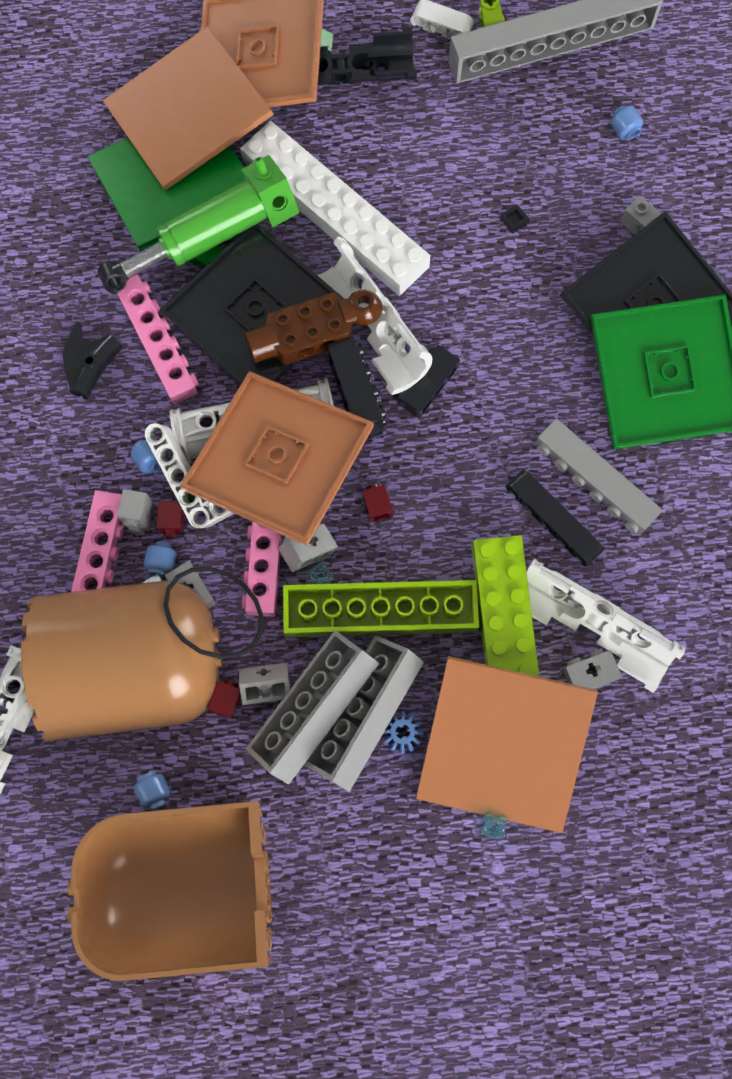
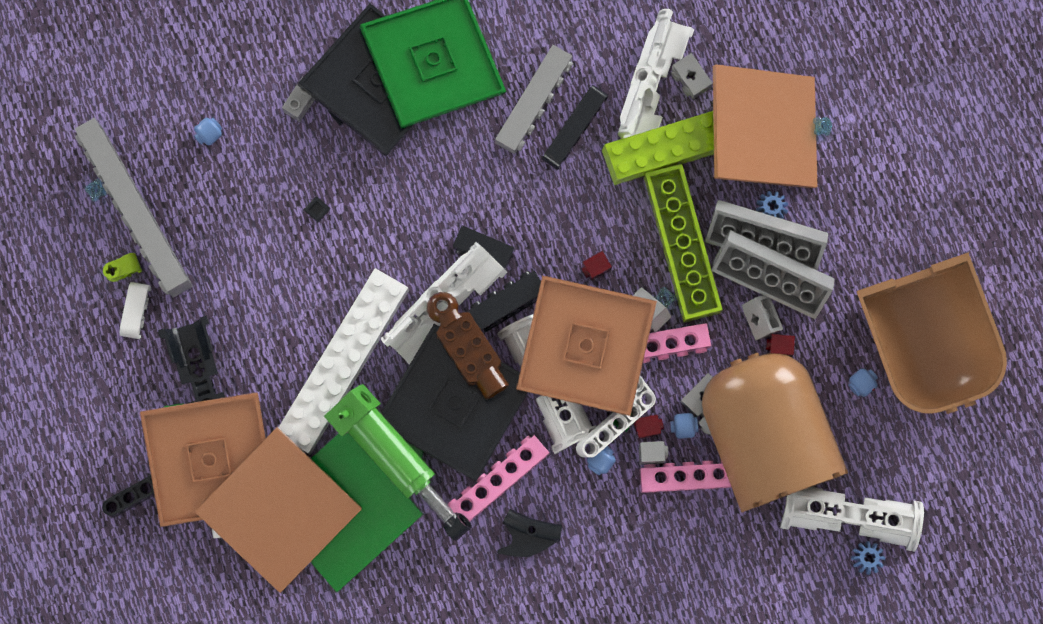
camera: 105 degrees left, 5 degrees up
(190, 644) = (741, 387): black piece -> none

